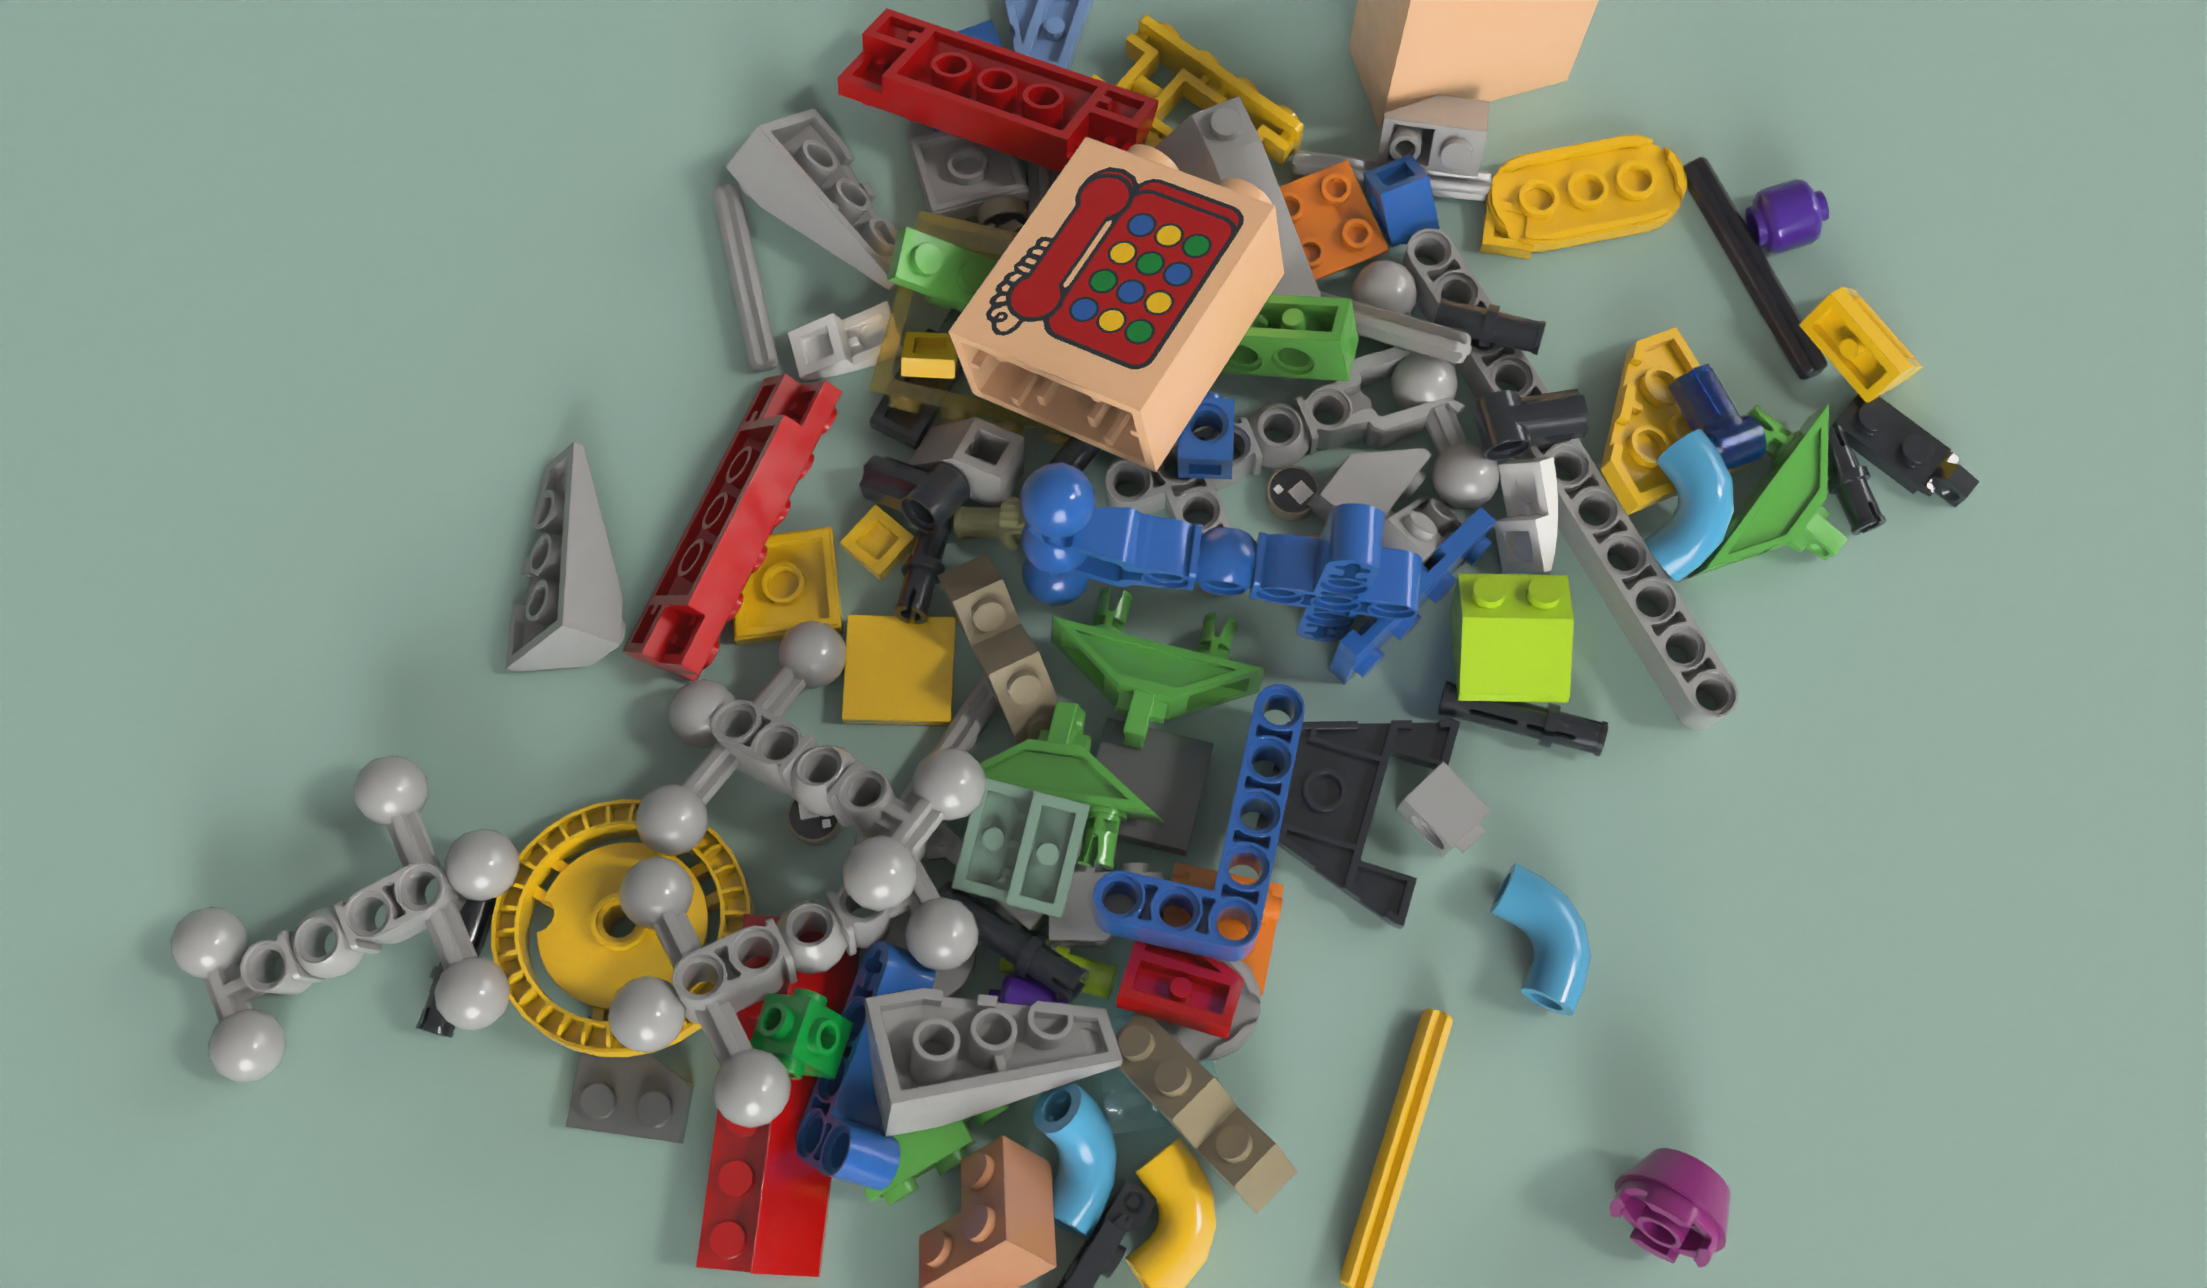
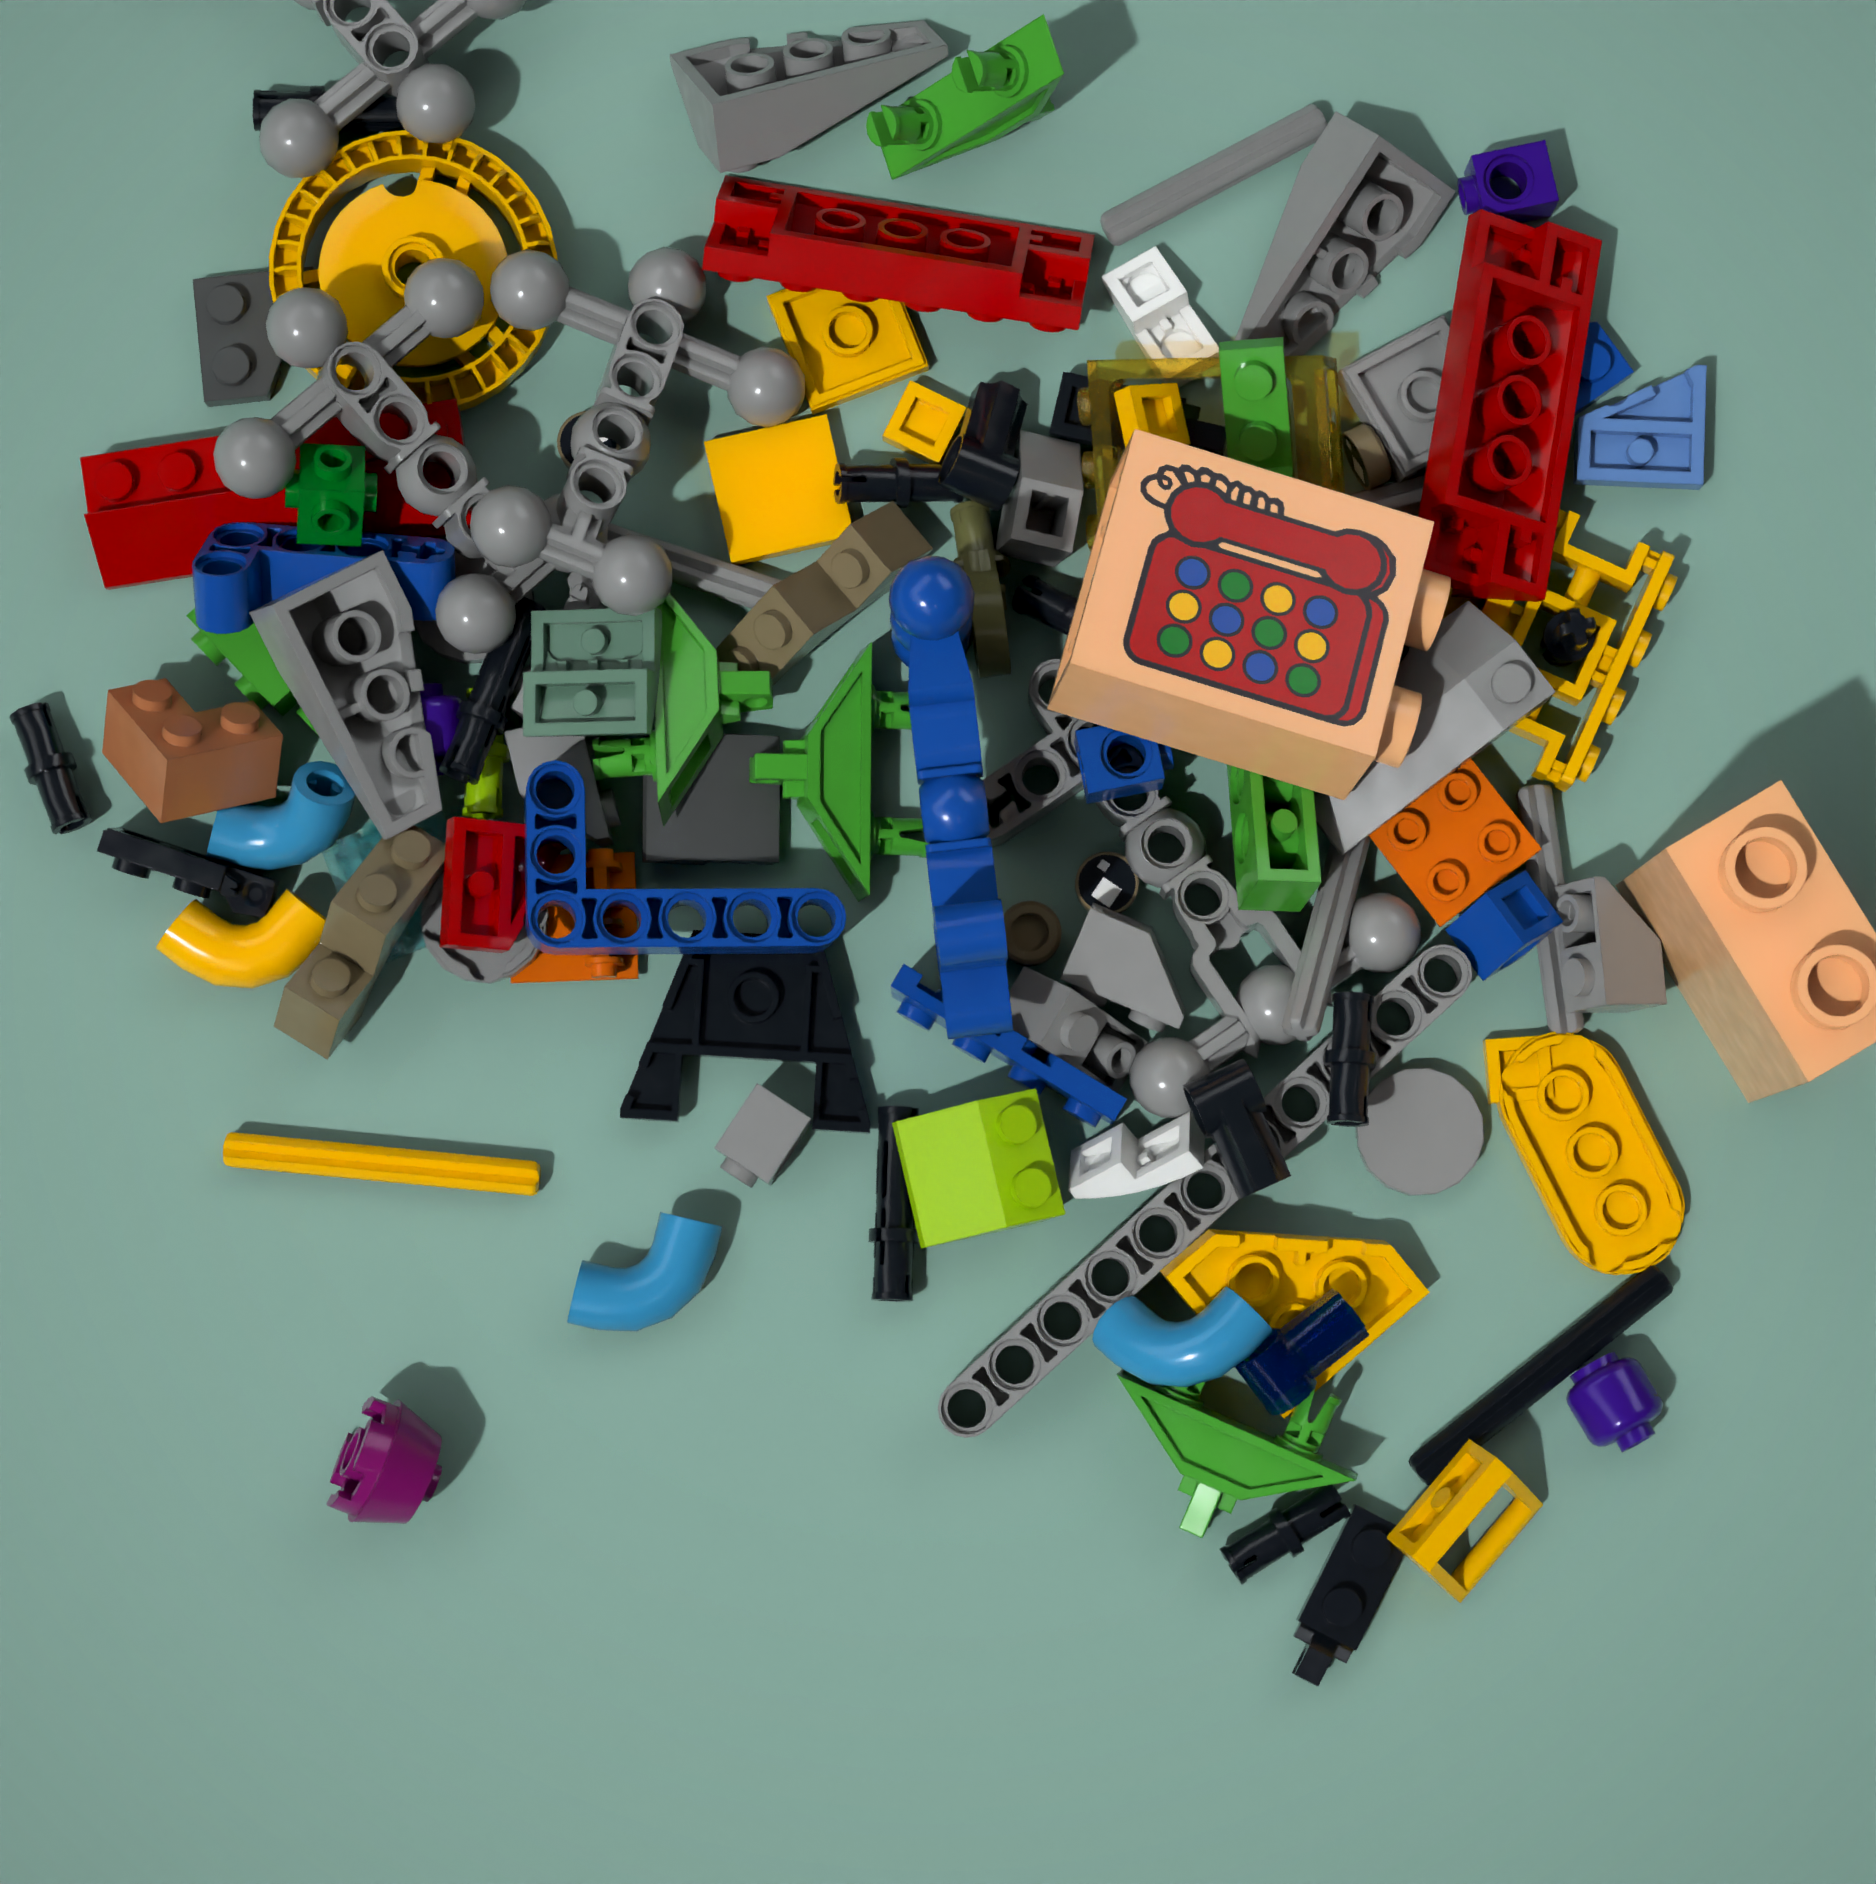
camera: 75 degrees right, 10 degrees up
(627, 423) = (972, 104): none -> bright green connector
(817, 50) = (1527, 166): none -> dark purple brick
(1187, 94) = (1568, 638): none -> black axle
(1551, 294) = (1420, 1132): none -> light grey tile

